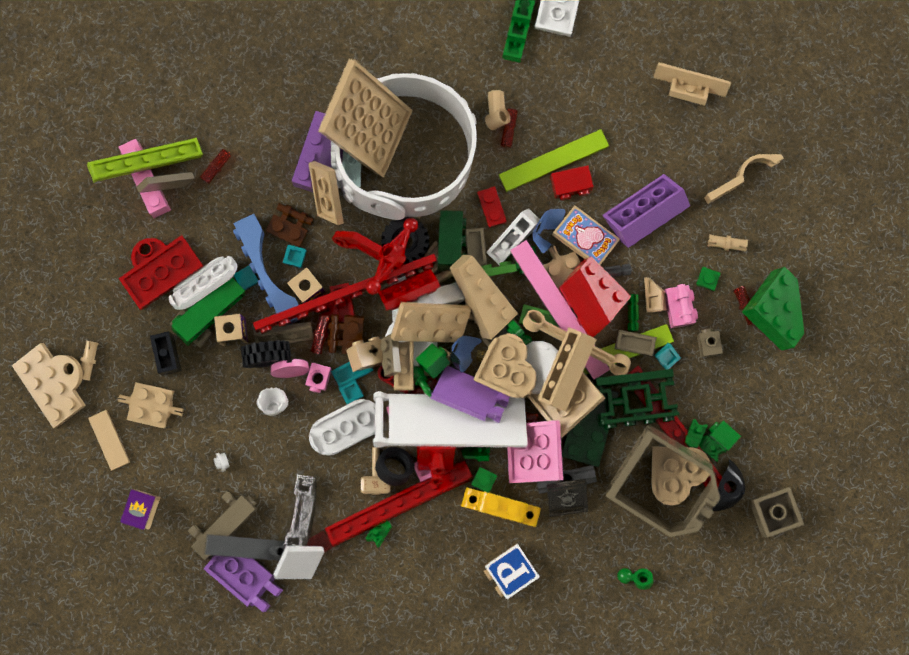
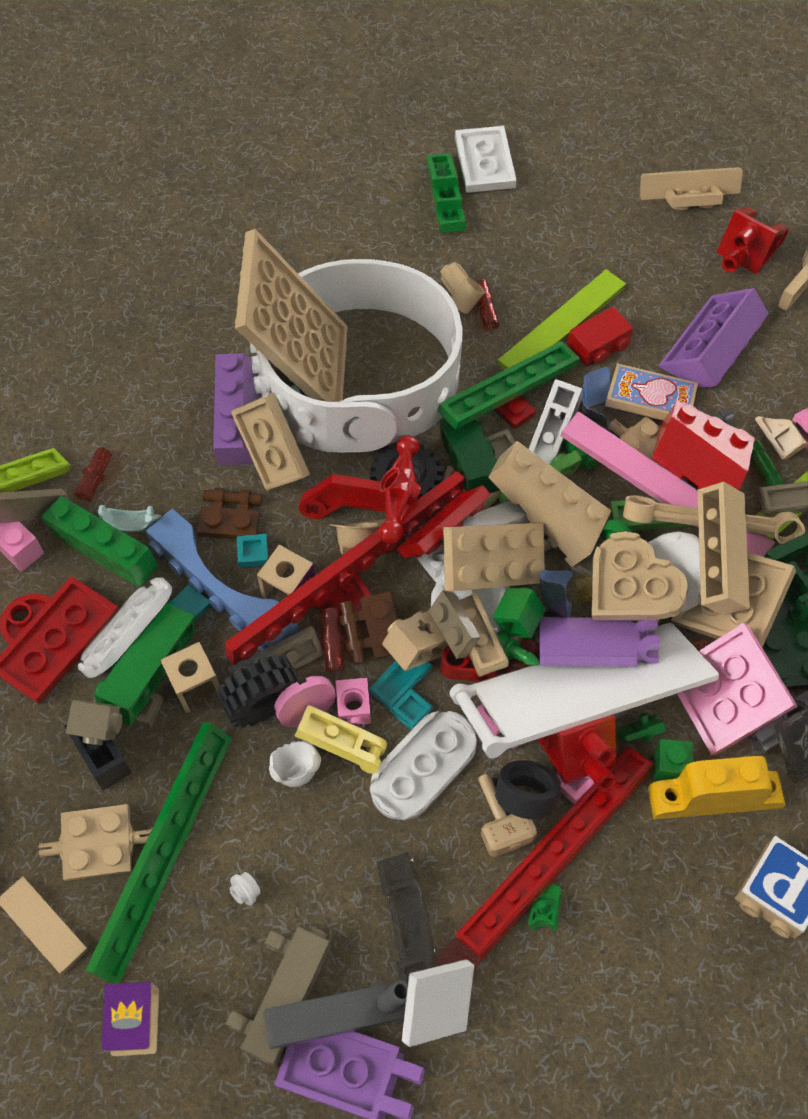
camera: 20 degrees left, 20 degrees down
(165, 342) = (94, 721): none -> dark tan brick
(183, 423) = (159, 855): none -> green plate
(204, 219) = (100, 541): none -> green brick
(228, 207) = (129, 520): none -> light aqua helmet
(302, 397) = (341, 738): none -> light yellow plate
(360, 269) = (352, 534): none -> tan piece
(494, 200) = (507, 385): none -> green plate
(702, 145) = (749, 241): none -> red piece

